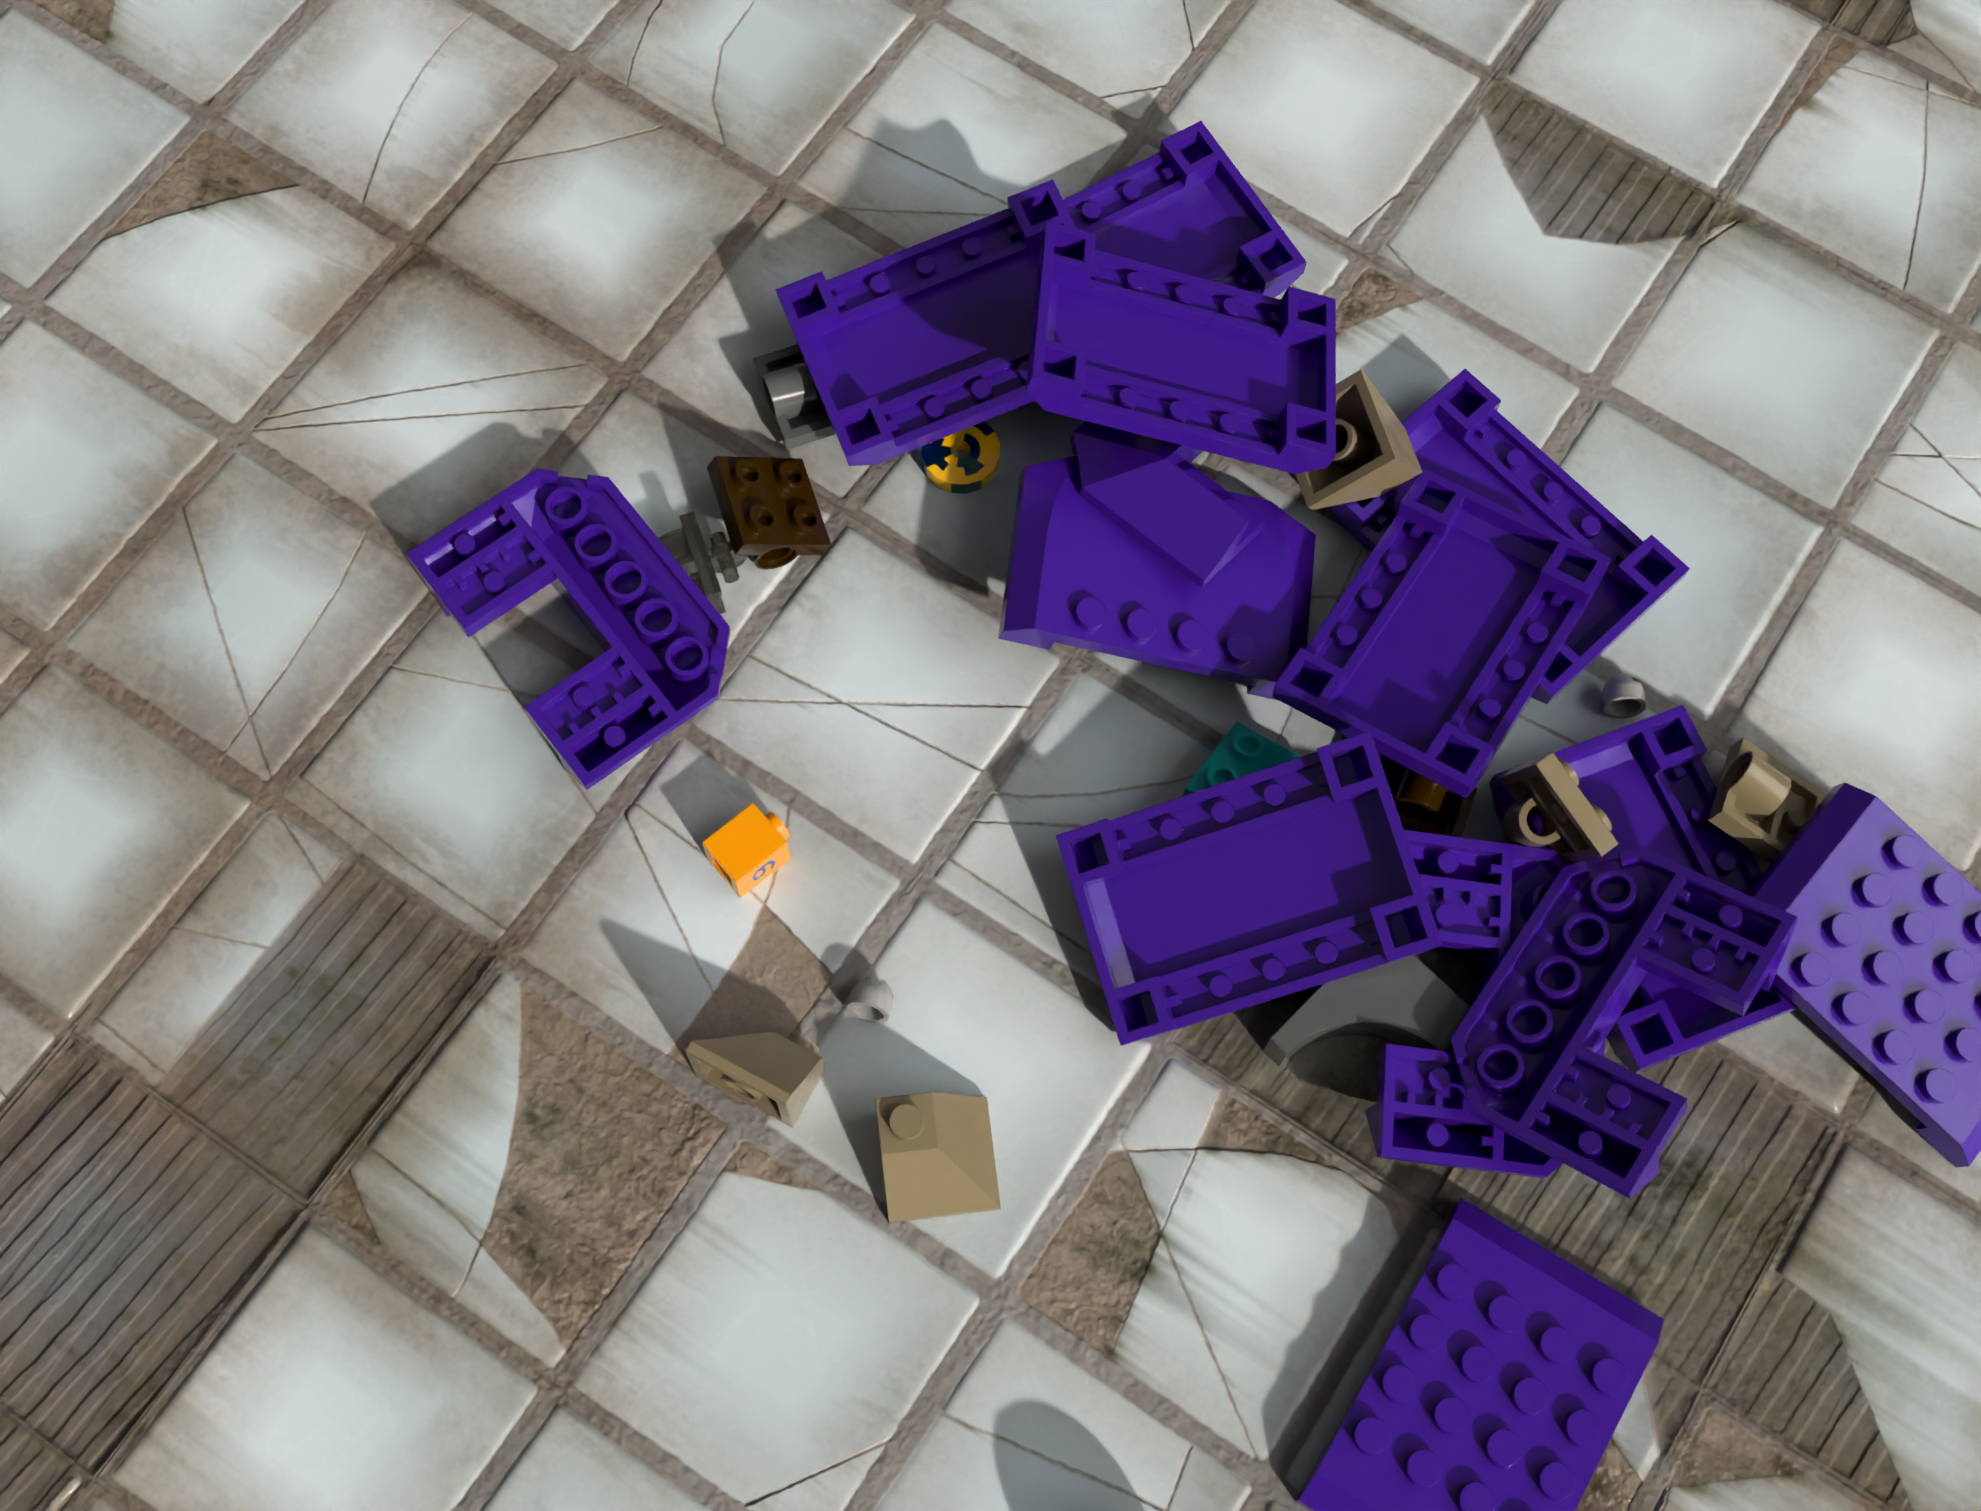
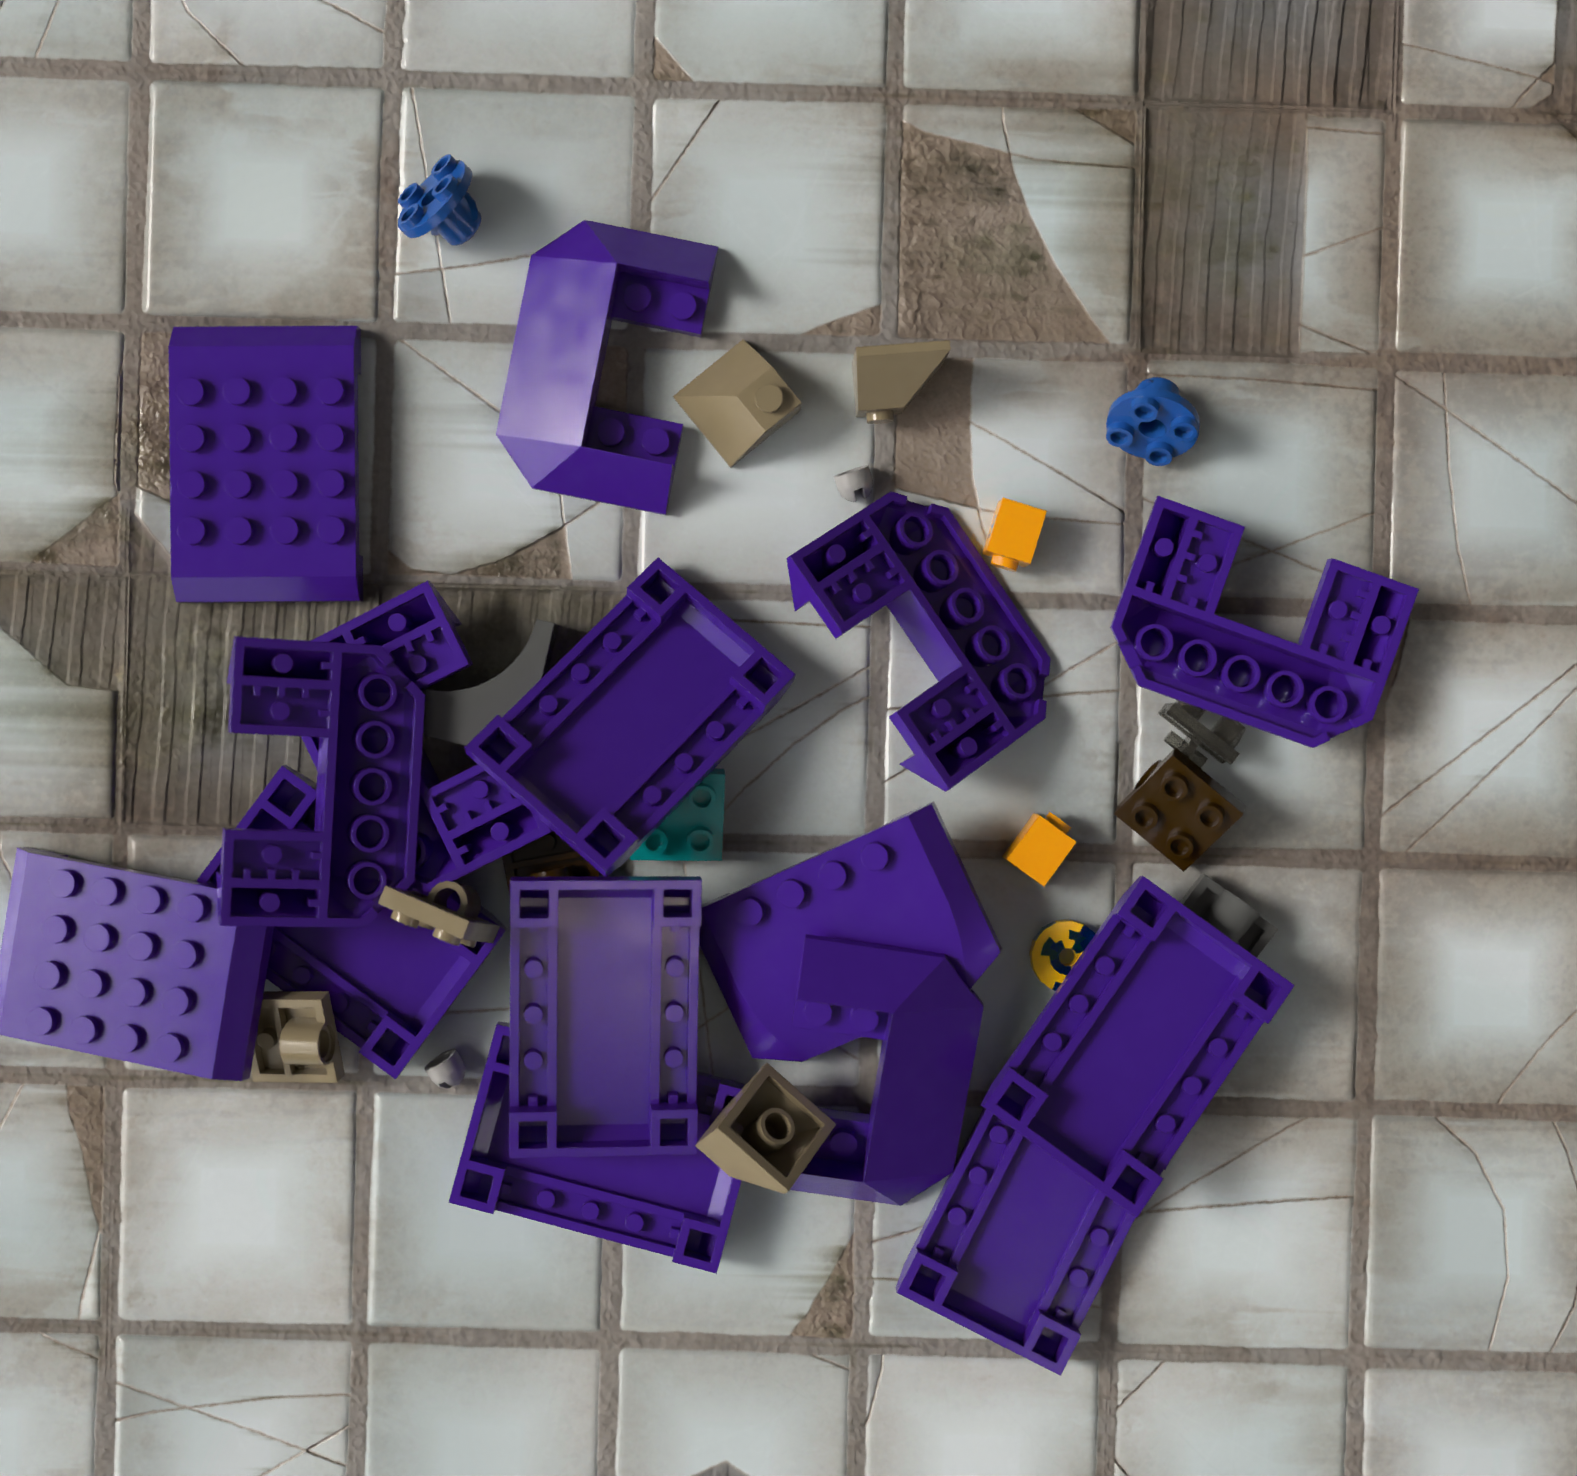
camera: 150 degrees right, 20 degrees up
(534, 868) = (1153, 422): none -> blue plate
(854, 805) = (953, 614): none -> dark purple slope
(922, 553) = (1040, 847): none -> light orange brick
(1054, 1373) = (560, 352): none -> dark purple slope
(1182, 356) = (934, 1112): dark purple slope -> none

